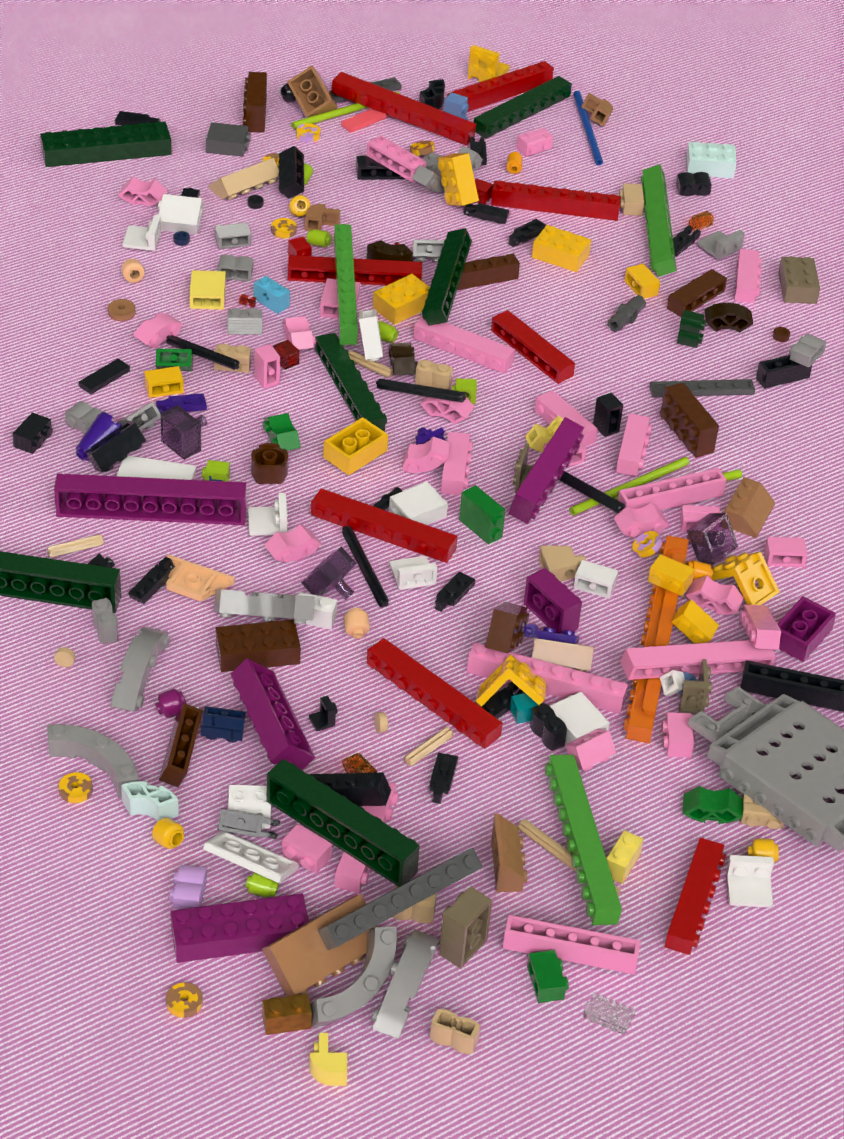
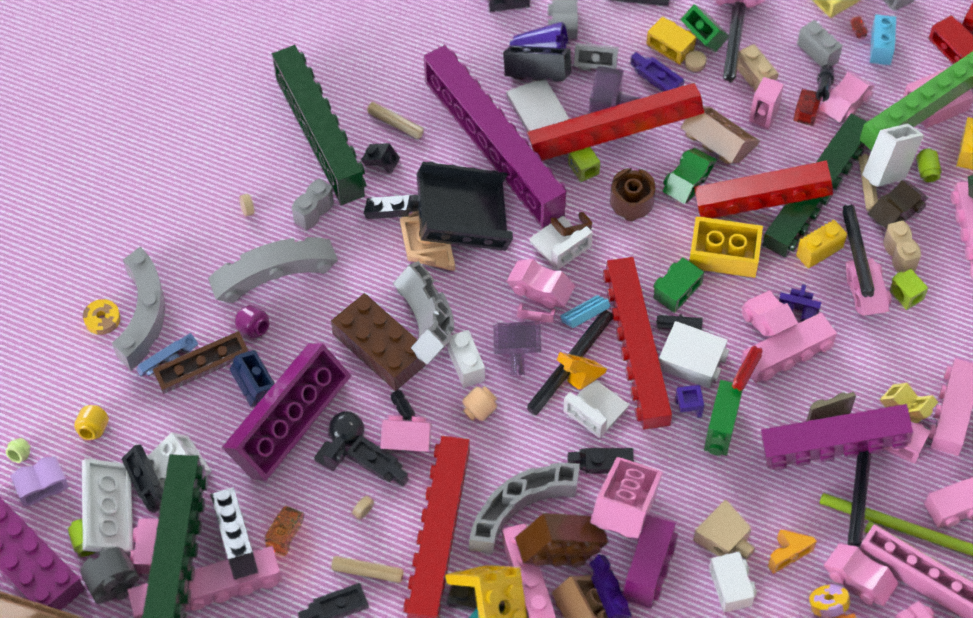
camera: 60 degrees right, 15 degrees up
(149, 800) = (117, 386): light aqua brick -> none
(150, 888) = (18, 450): none -> yellowish green plate
(152, 762) = (167, 354): none -> medium blue hinge
(191, 382) = (695, 61): none -> tan tile
(193, 545) = (462, 206): none -> black panel
(214, 429) = (616, 122): none -> red brick
(262, 510) = (570, 230): none -> reddish brown piece
(264, 403) = (720, 135): none -> slope
(276, 333) = (825, 80): none -> black pin
(307, 700) = (346, 426): none -> black hair
(313, 877) = (109, 575): none -> dark grey brick
(319, 556) = (536, 316): none -> bright pink piece
(323, 664) = (403, 405): none -> black axle
(332, 536) = (585, 311): none -> medium azure tile
(334, 403) = (764, 190): none -> brick
(347, 669) = (406, 434): none -> bright pink brick
(353, 696) = (377, 461): none -> black hinge
(359, 483) = (678, 284): none -> green brick
(381, 562) = (582, 370): none -> light orange slope
(395, 406) = (821, 244): none -> yellow brick
(452, 660) = (517, 493): none -> light grey brick
(454, 522) = (690, 399): none -> dark purple panel
(463, 477) = (747, 368): none -> red axle
(504, 581) = (626, 497): none -> bright pink brick
(595, 540) = (793, 548): none -> light orange slope

